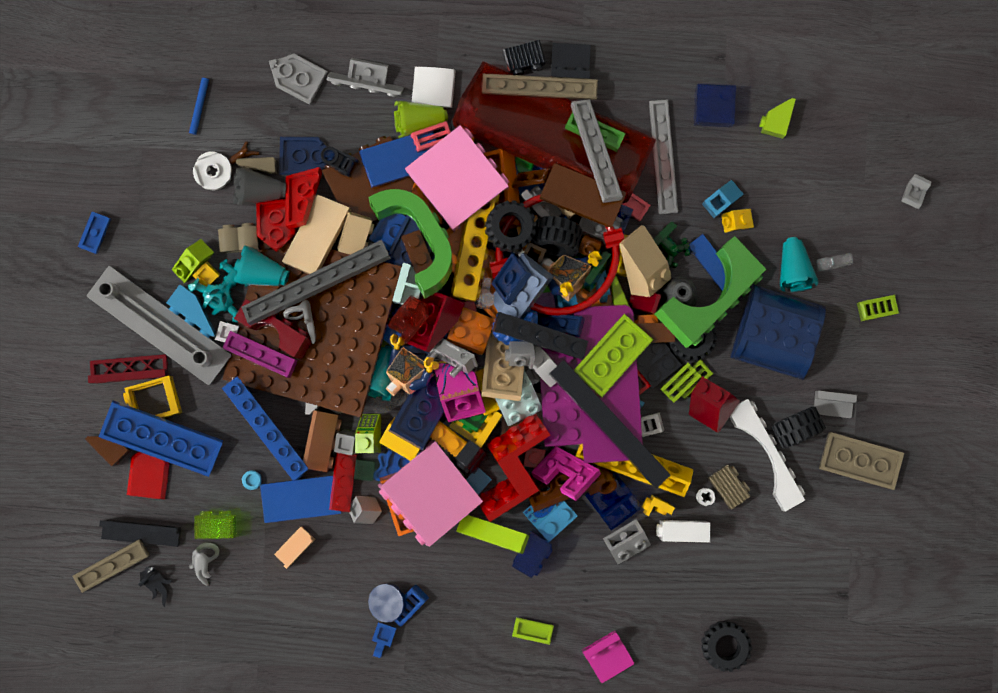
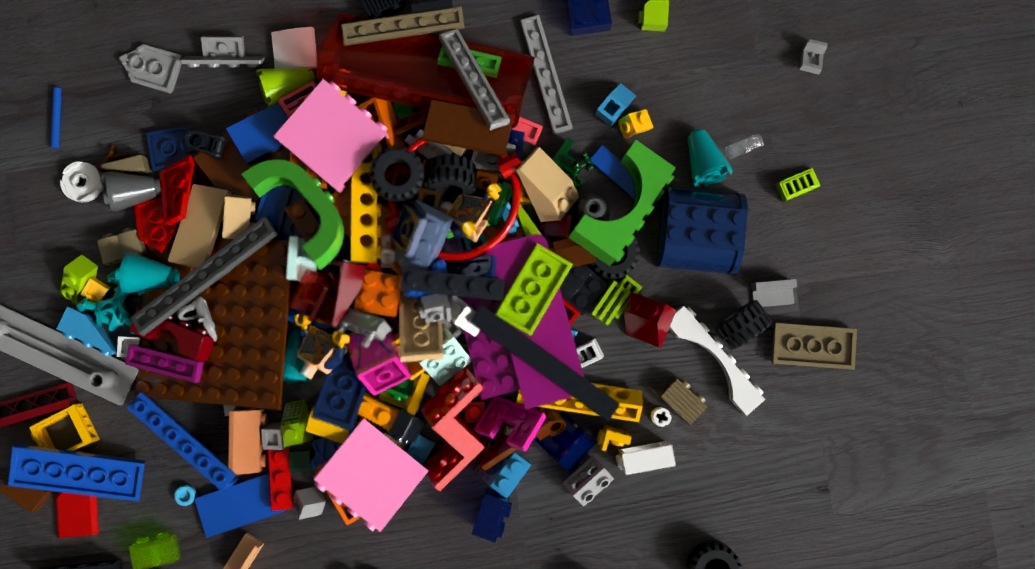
camera: 15 degrees left, 0 degrees up
(493, 533) = (447, 502): lime tile -> none

